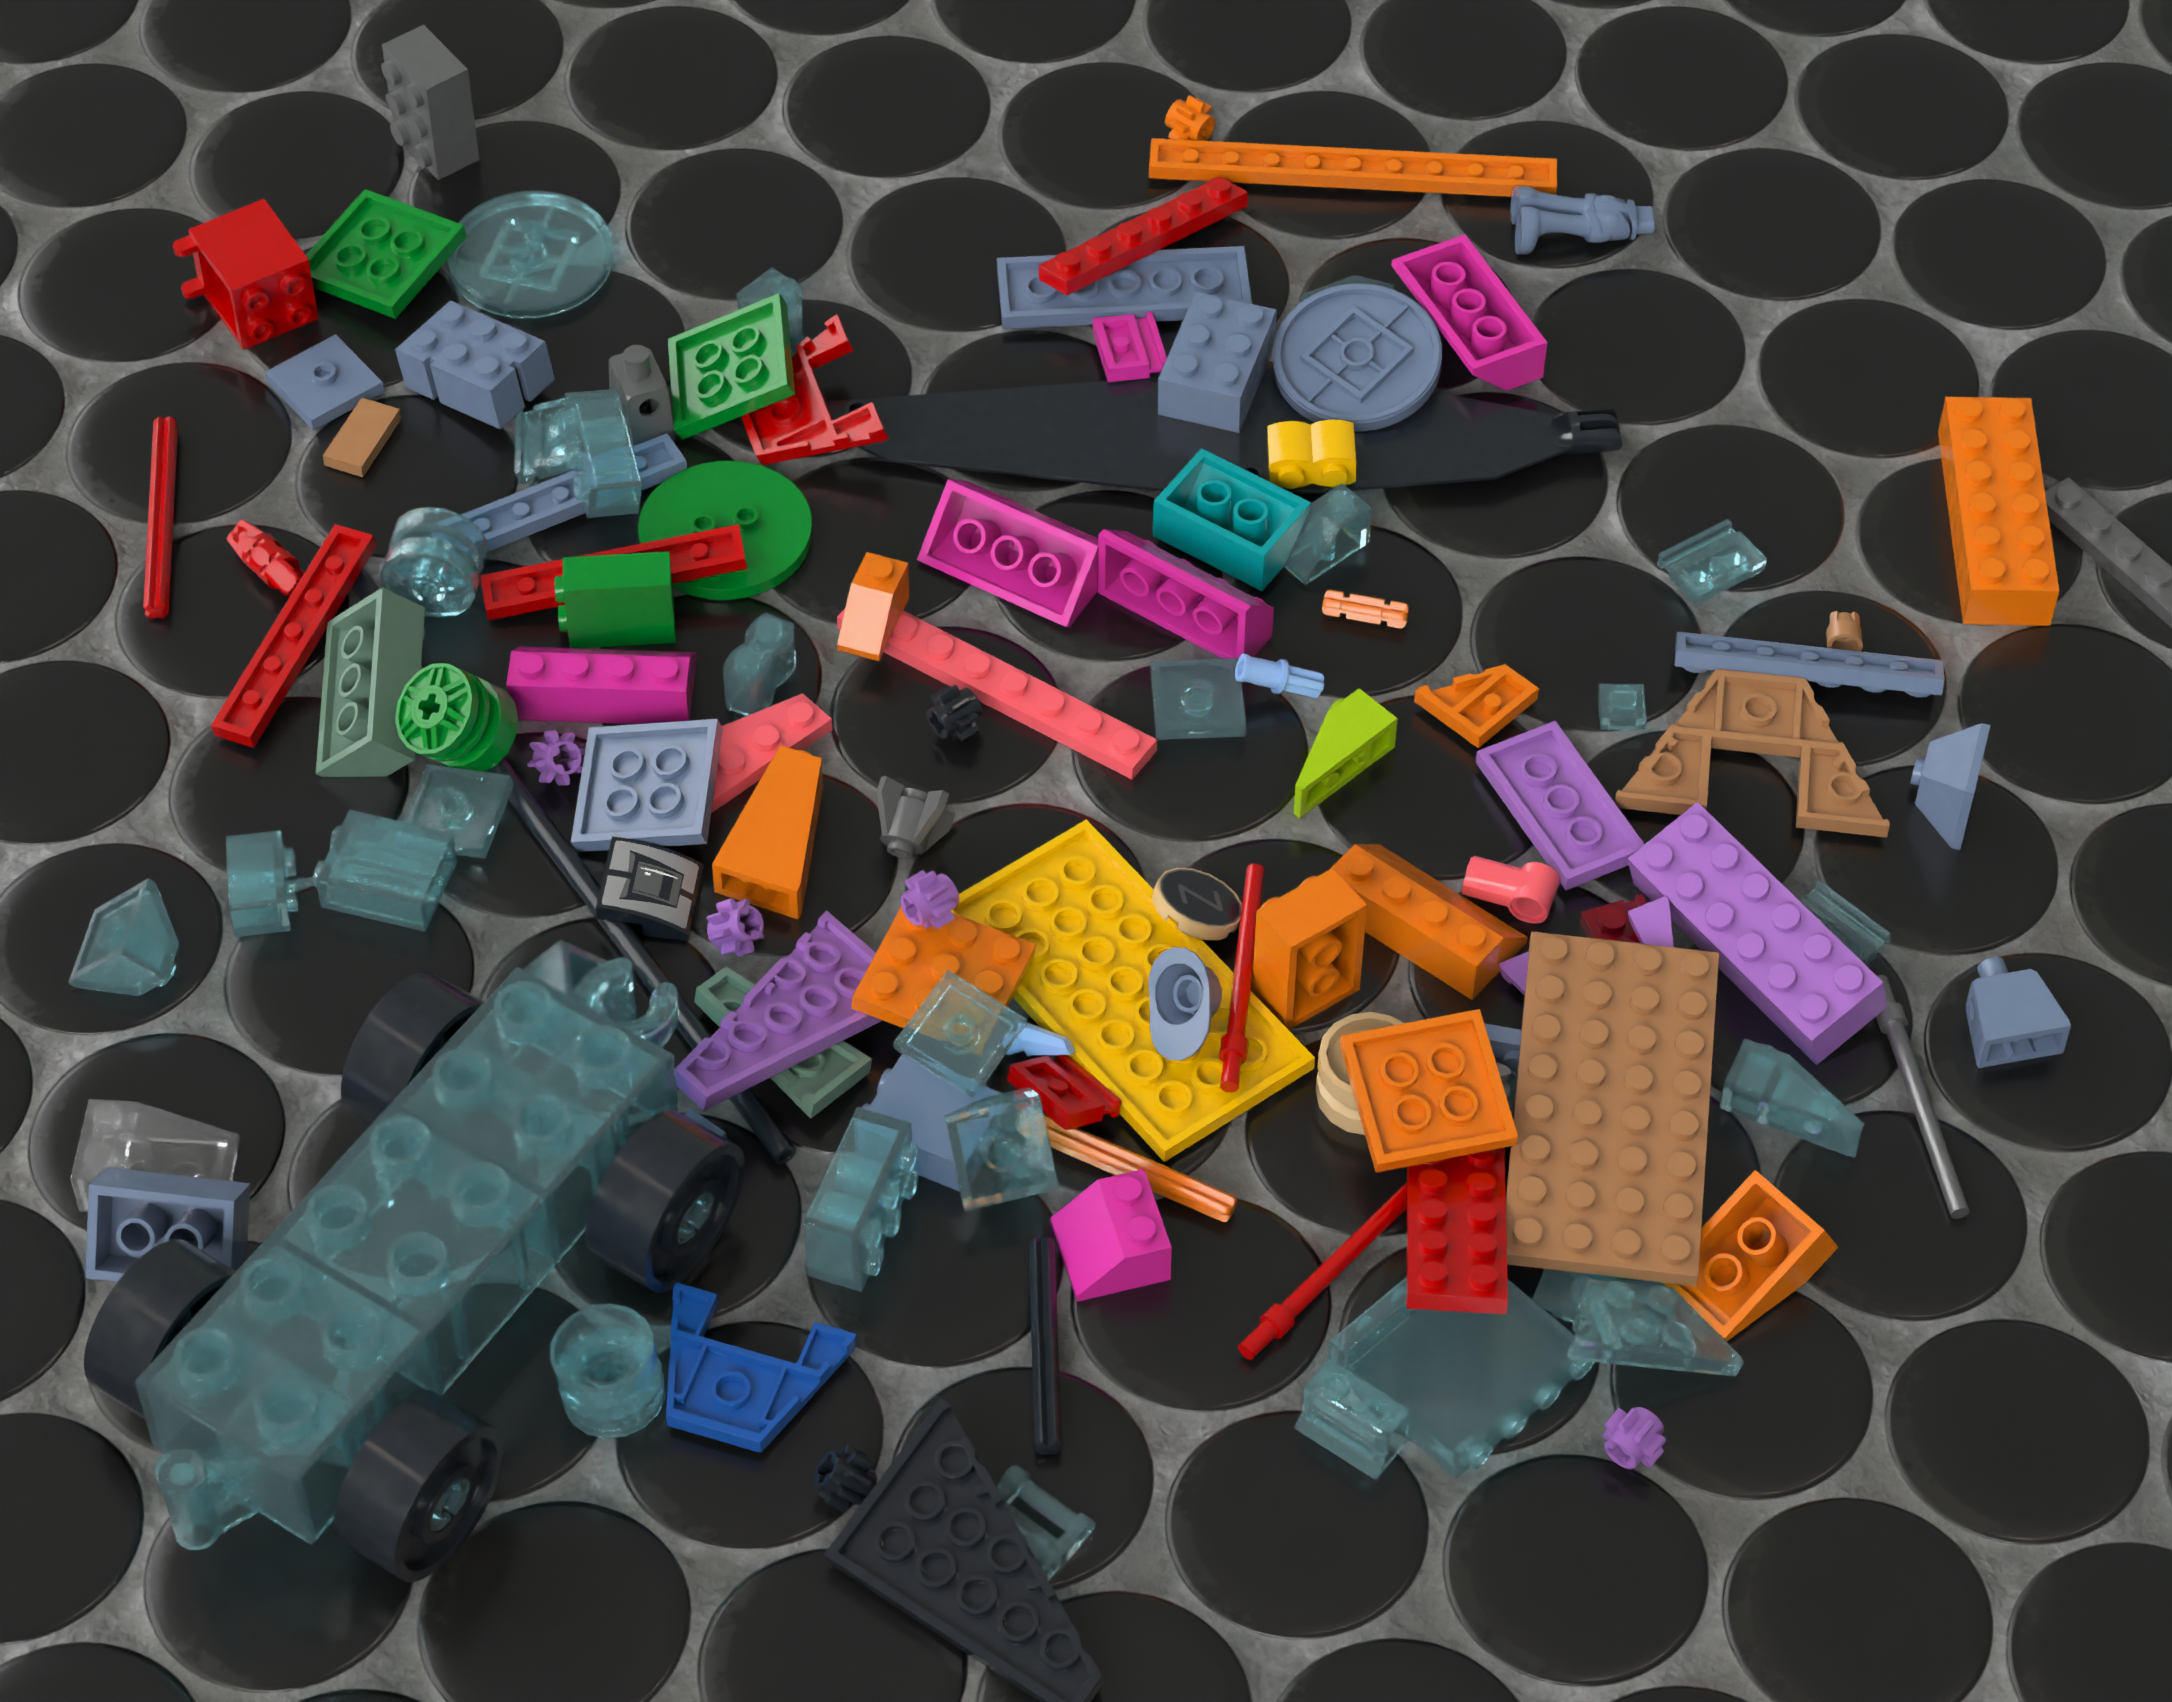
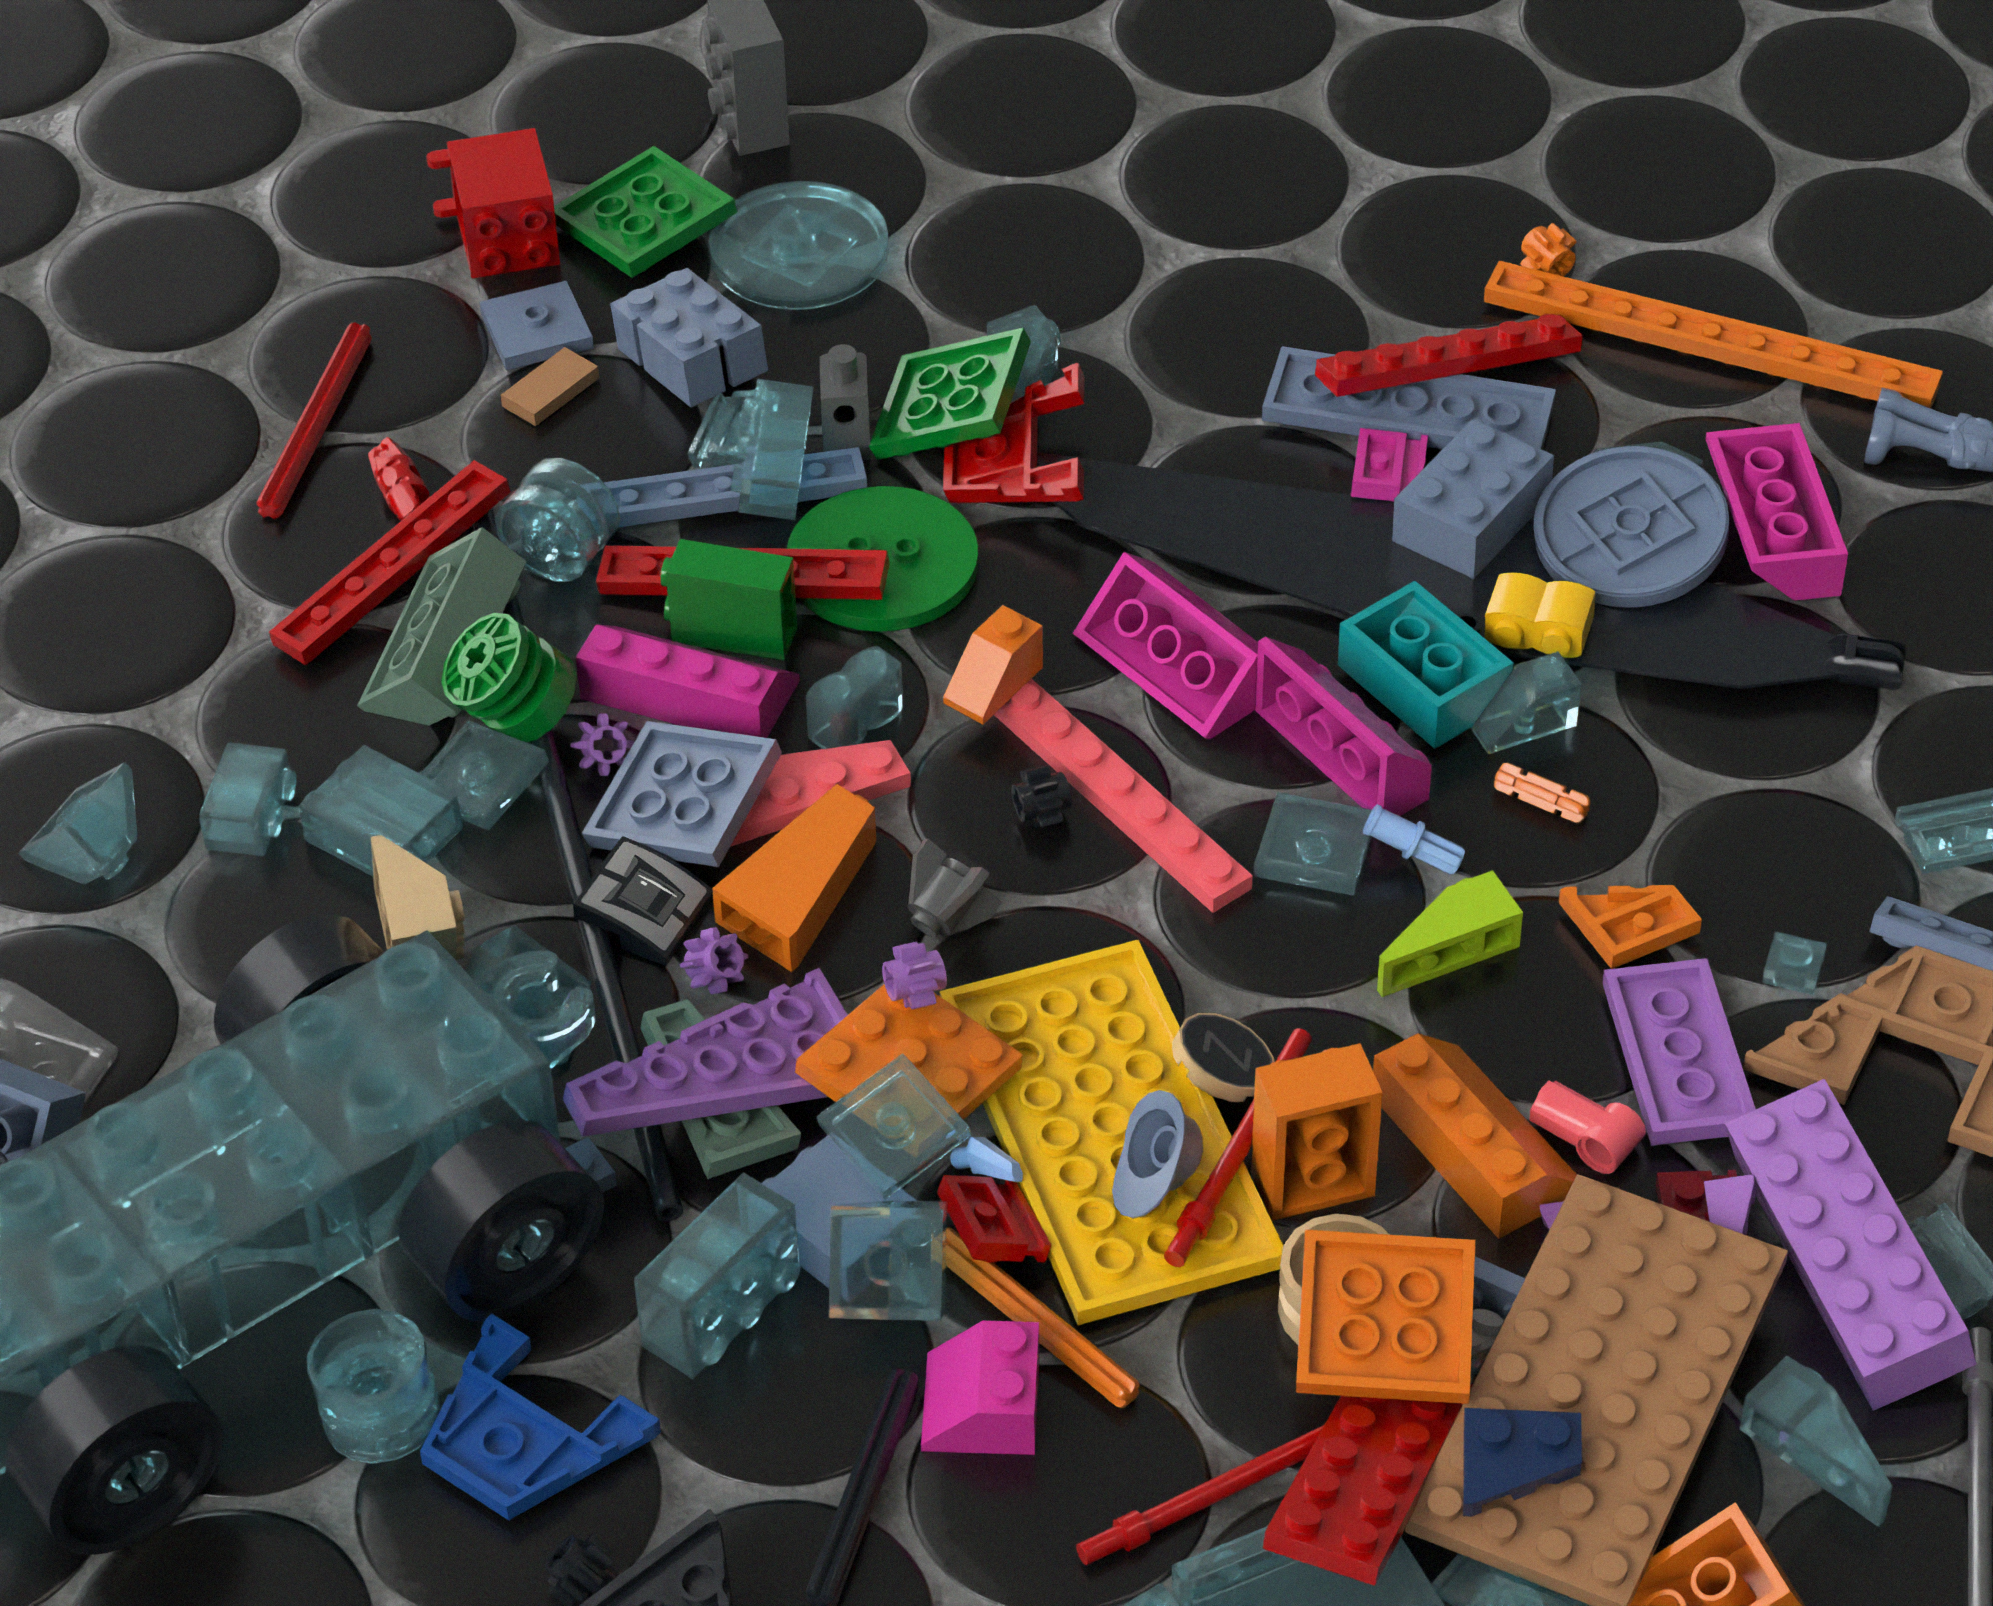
camera: 20 degrees right, 5 degrees down
(476, 944) = (415, 899): none -> tan slope
(1572, 1176) = (1517, 1453): none -> dark blue wing

